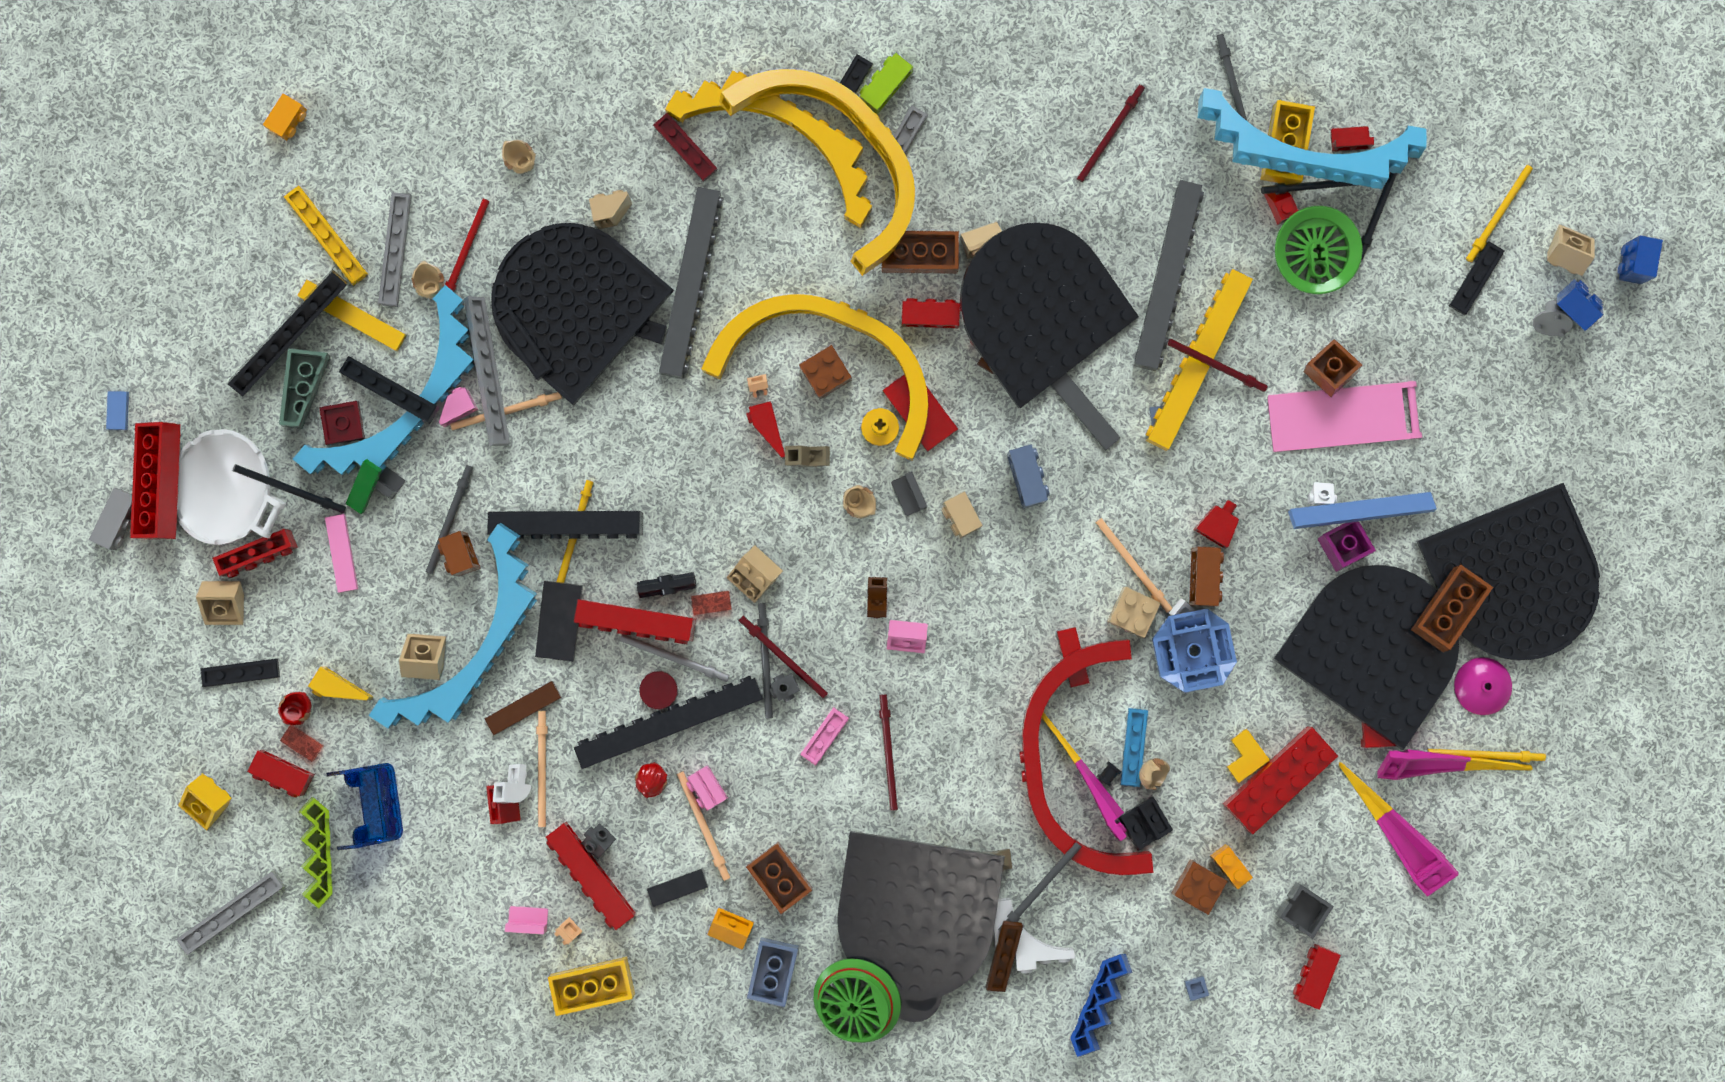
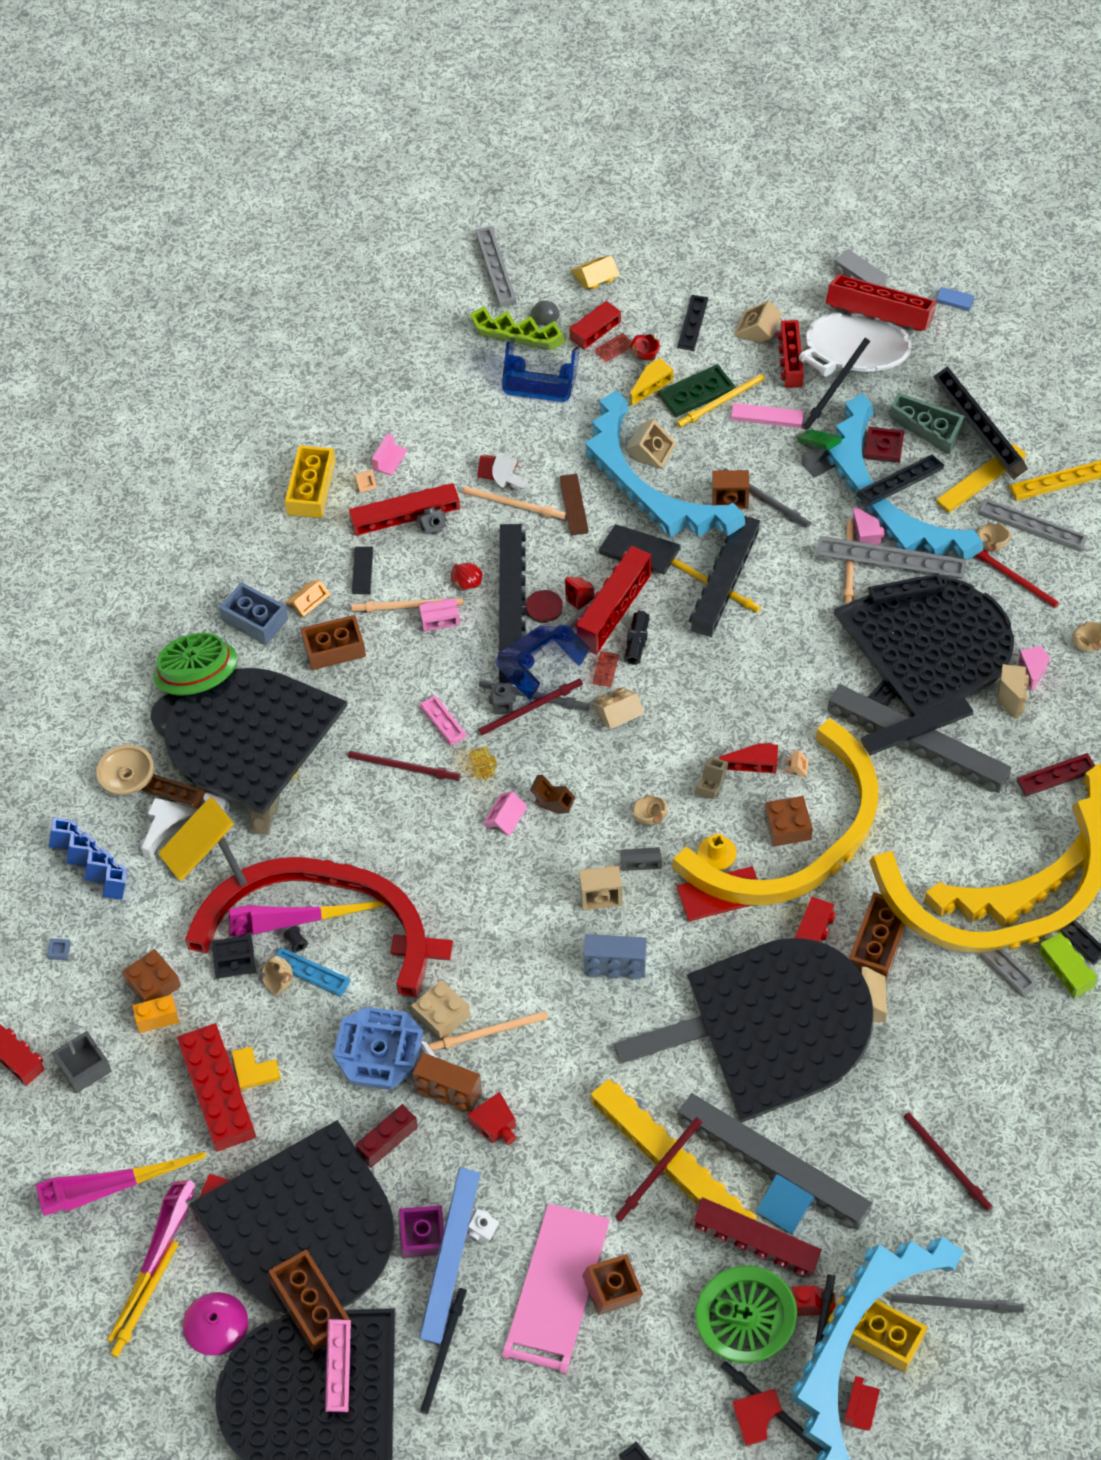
camera: 110 degrees right, 30 degrees down
(280, 833) = (544, 312): none -> dark grey hair
(332, 636) = (696, 390): none -> dark green tile
(368, 628) = (694, 415): none -> yellow bar
(569, 199) = (1036, 664): none -> bright pink slope
(633, 659) = (578, 592): none -> red slope
(684, 284) = (916, 726): none -> black tile
(739, 687) = (517, 658): none -> clear blue windscreen
(862, 677) = (482, 762): none -> clear yellow brick
(999, 1027) = (122, 762): none -> tan dish
(1048, 910) = (196, 838): none -> yellow tile
(1204, 252) = (785, 1204): none -> dark azure tile
(1252, 264) = (755, 1237): none -> dark red brick
(1269, 611) = (387, 1135): none -> dark red brick
(1393, 217) = (755, 1414): none -> red tile
(1397, 490) = (455, 1312): none -> black bar
(1498, 560) = (337, 1366): none -> bright pink tile

